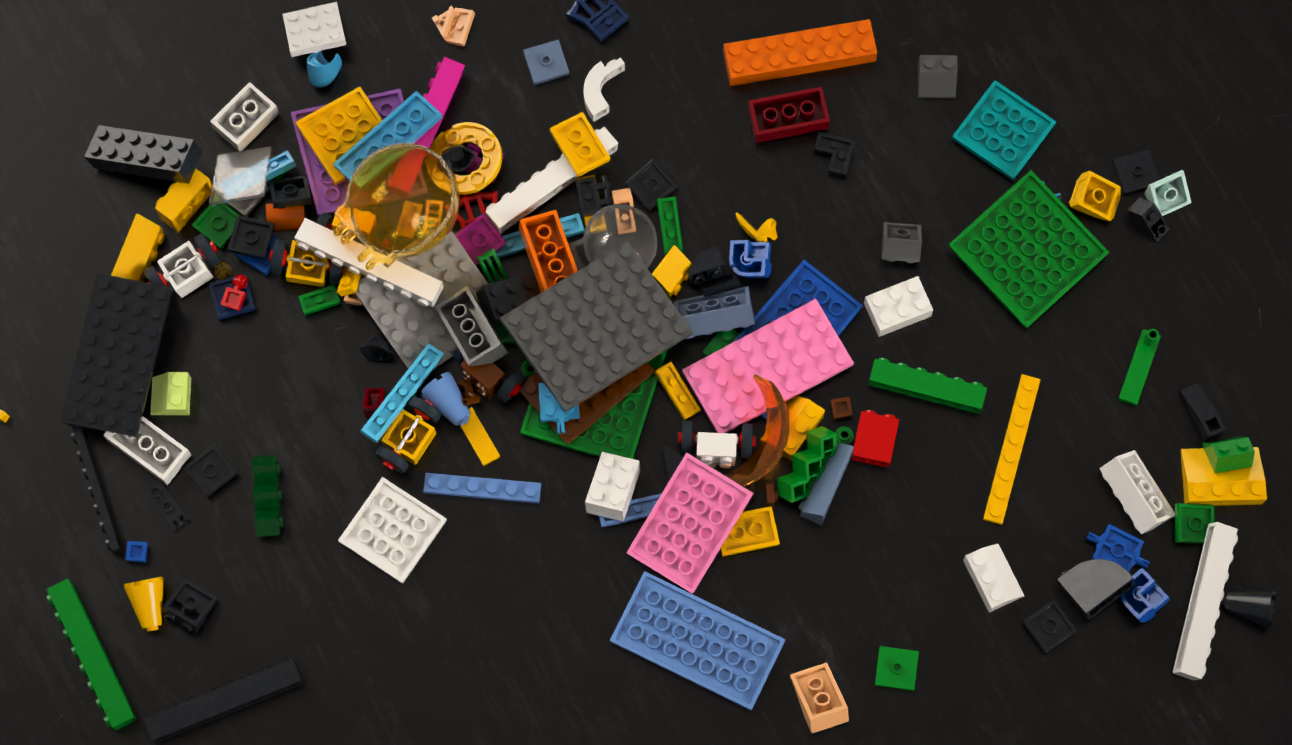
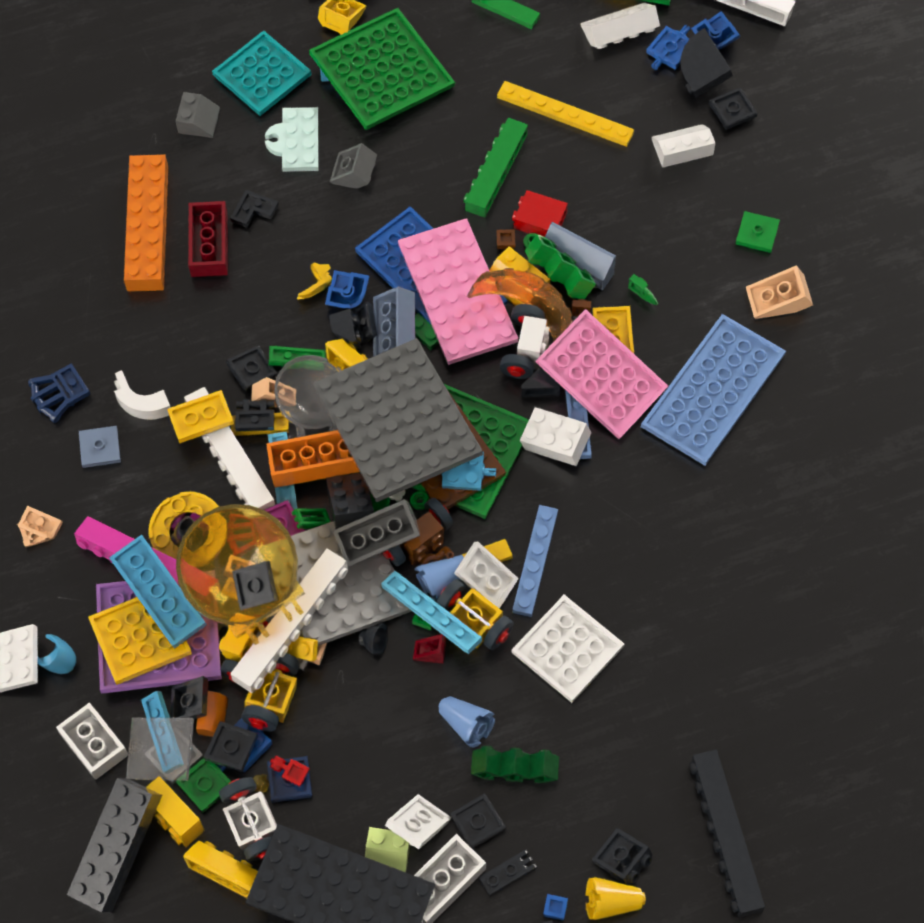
camera: 80 degrees left, 10 degrees down
(198, 414) = (418, 821): none -> white plate
(305, 444) = (467, 719): none -> medium blue cone
(319, 299) = (310, 691): green plate -> none
(384, 220) = (255, 585): none -> black plate
(451, 440) = (486, 574): none -> white plate
(677, 391) = (466, 372): yellow tile -> none
(806, 551) = (640, 287): none -> green plate
(898, 306) = (416, 178): white brick -> none
(929, 180) = (296, 139): none -> light aqua plate

